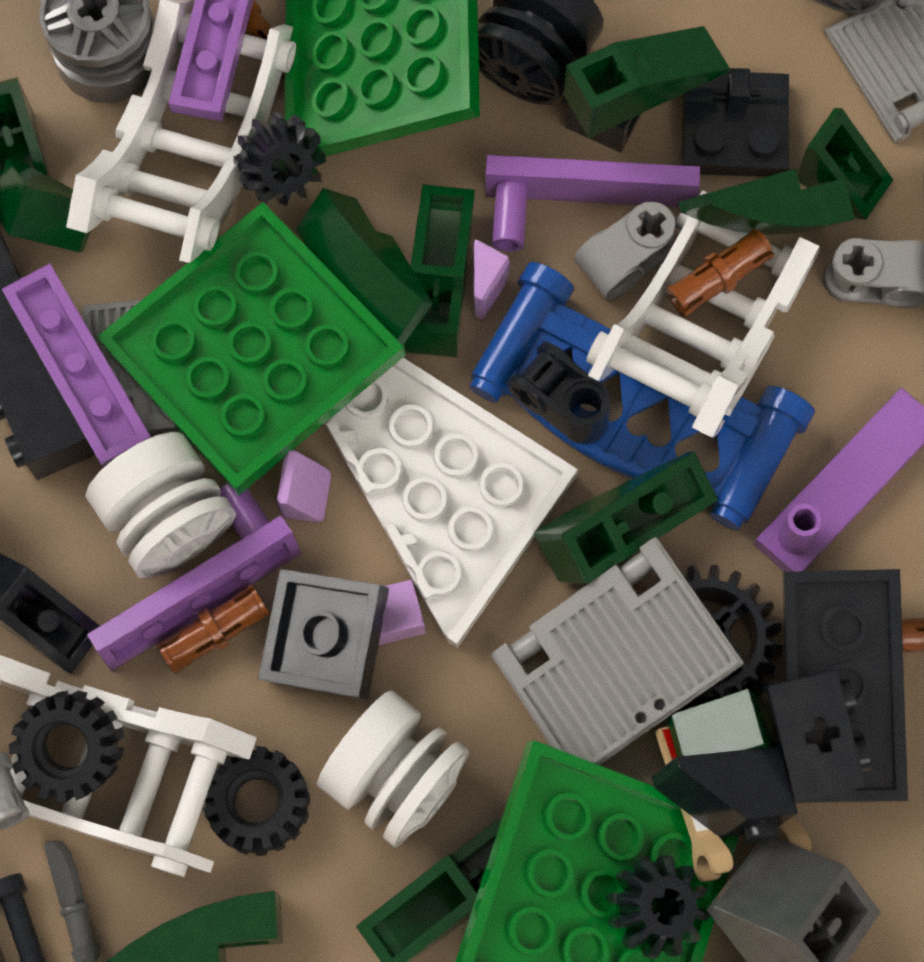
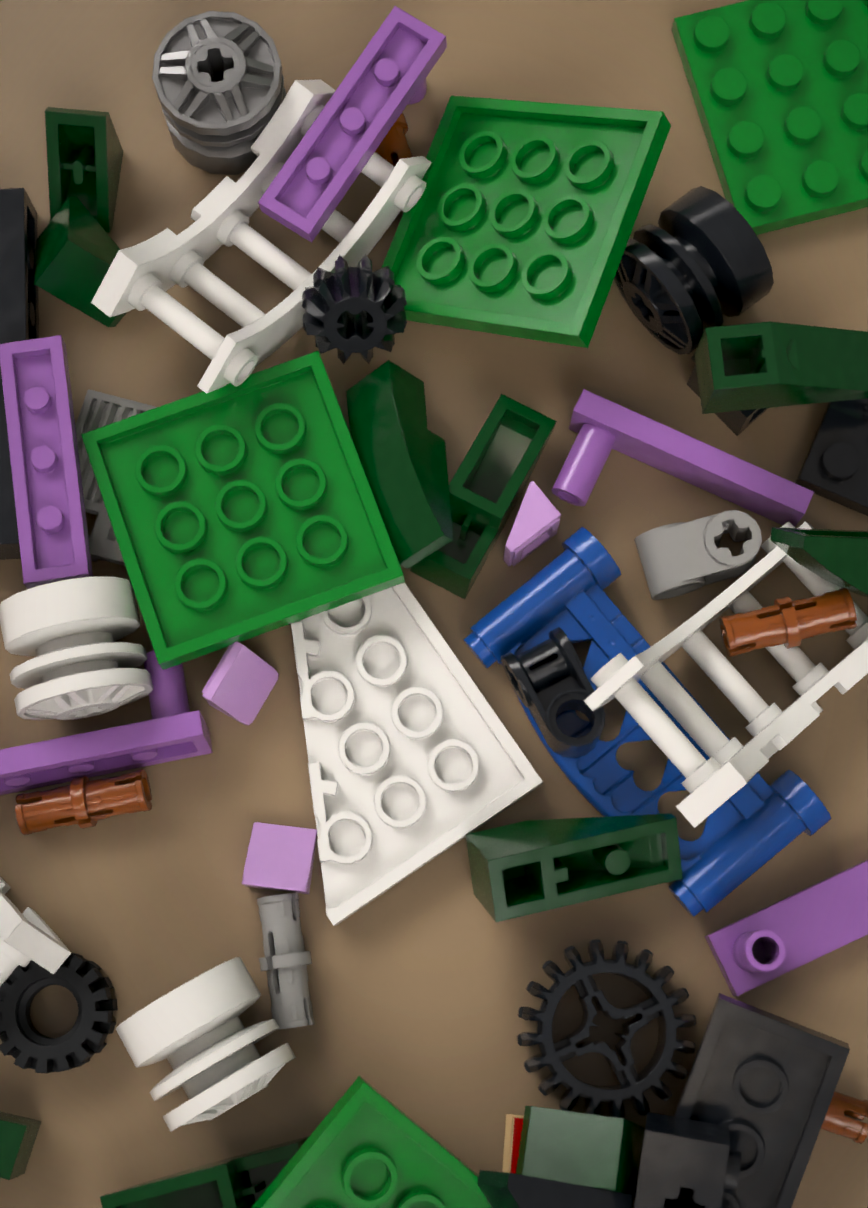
camera: 20 degrees right, 5 degrees up
(324, 633) = (194, 859): hinge -> none
(428, 687) = (285, 960): none -> light grey pin
(618, 657) = (499, 1018): light grey window -> none

